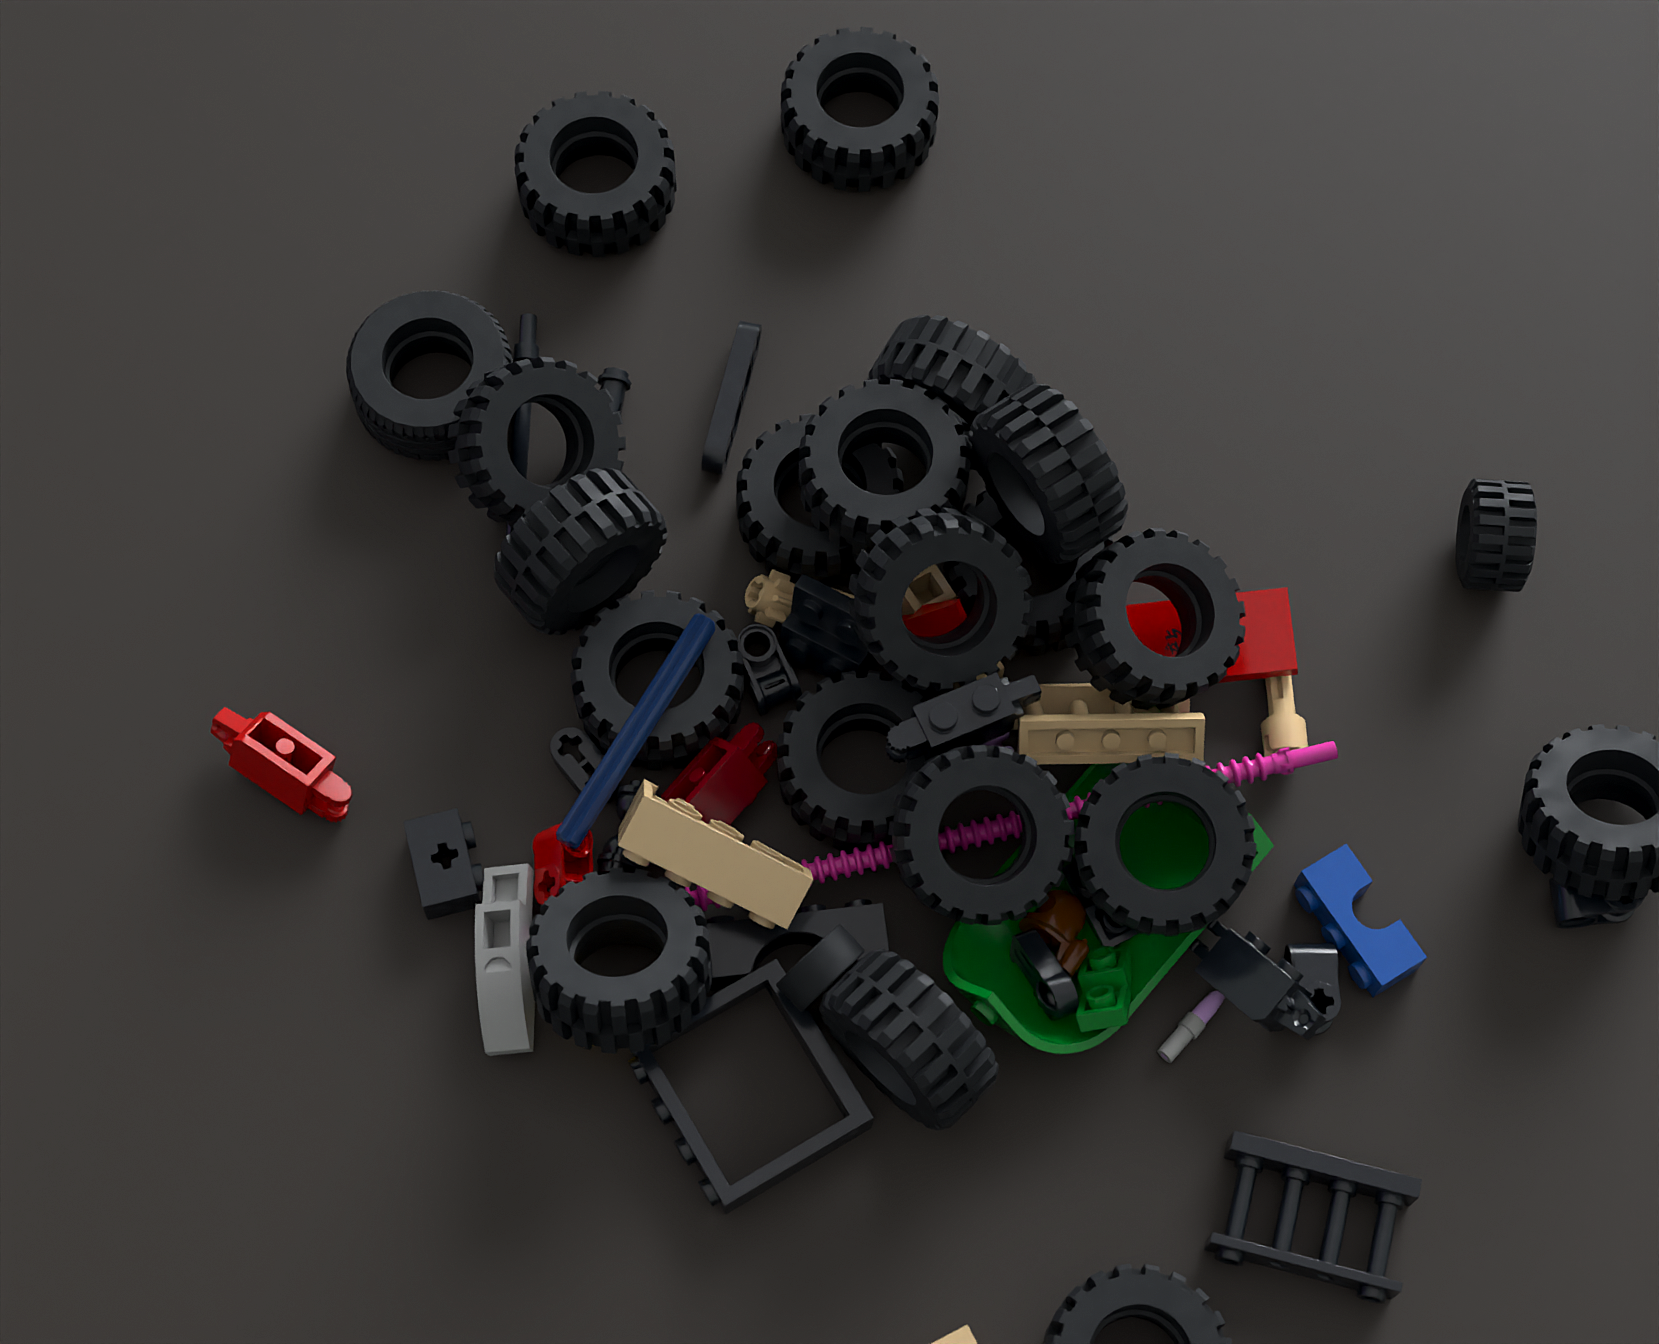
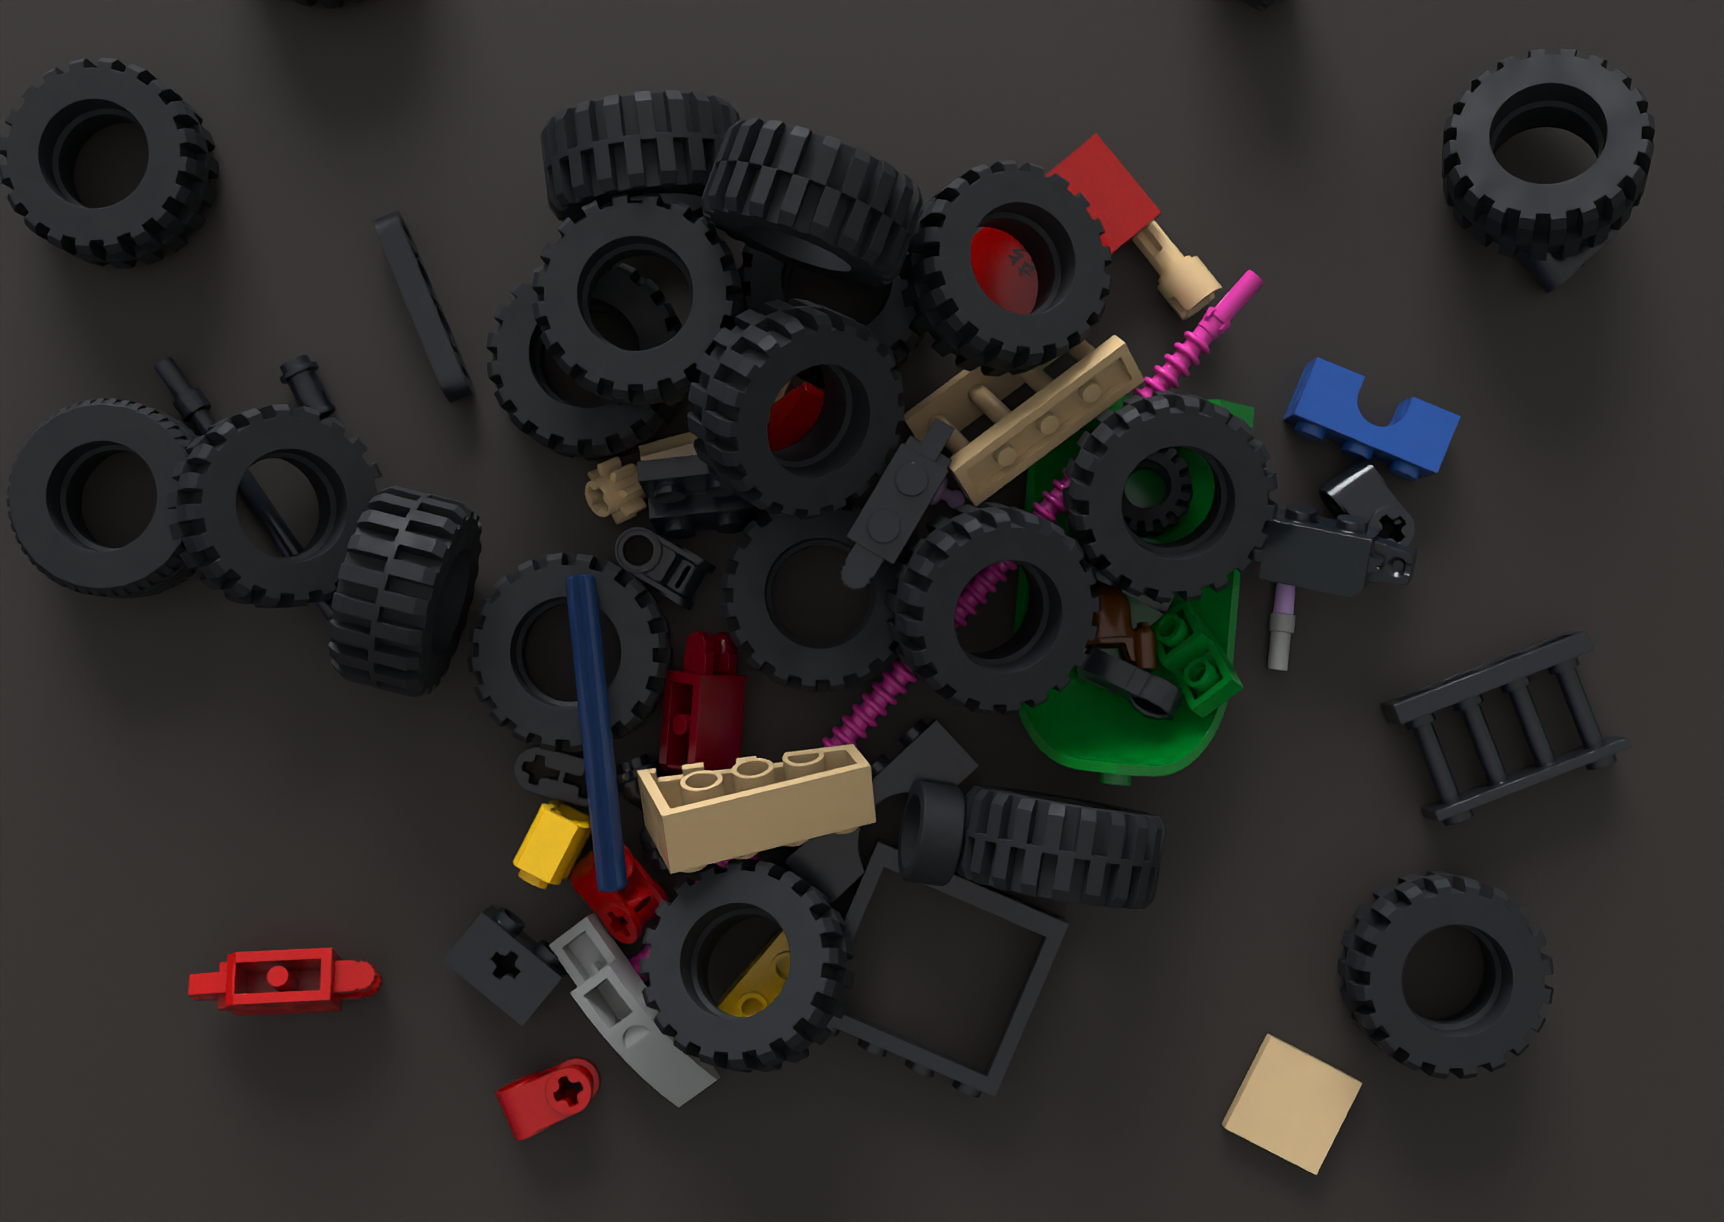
camera: 40 degrees left, 20 degrees up
(390, 977) = (542, 1099): none -> red piece
(542, 795) = (552, 844): none -> yellow brick
(1162, 827) = (1176, 497): none -> black tyre

